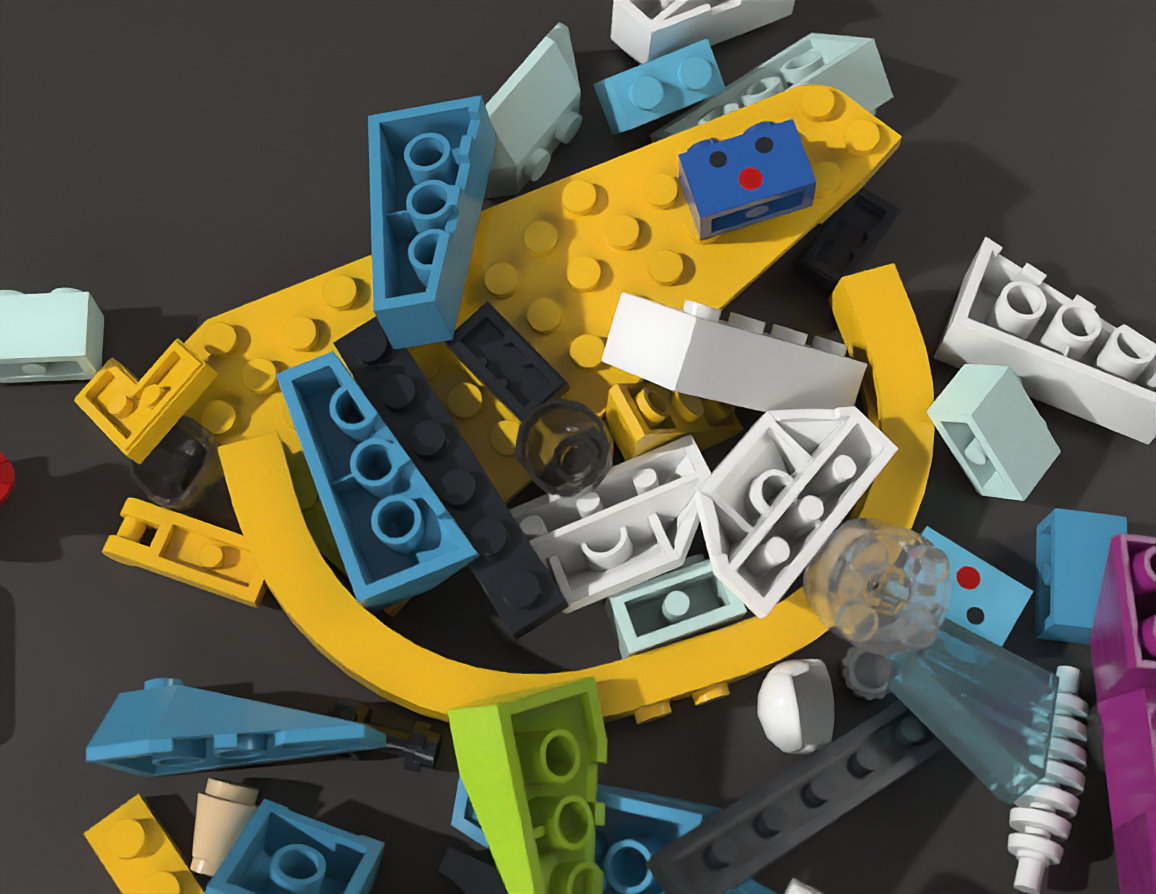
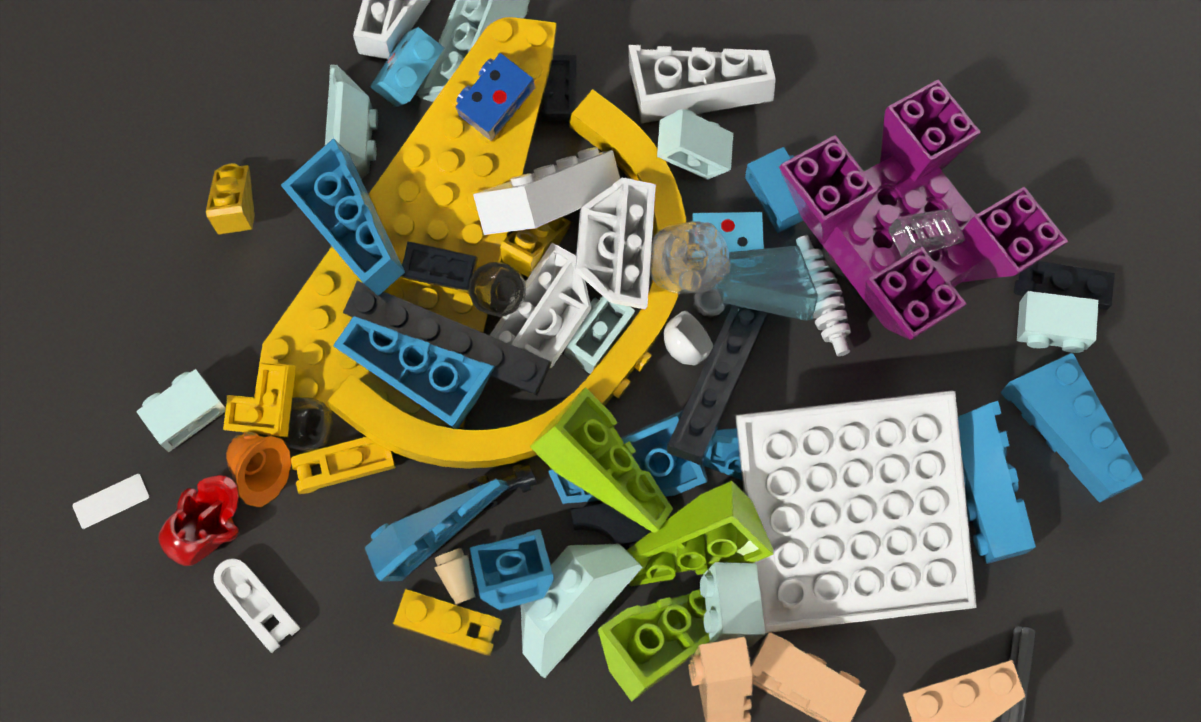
camera: 30 degrees left, 5 degrees up
(71, 482) = (258, 467): none -> orange piece
(305, 112) = (231, 199): none -> yellow slope

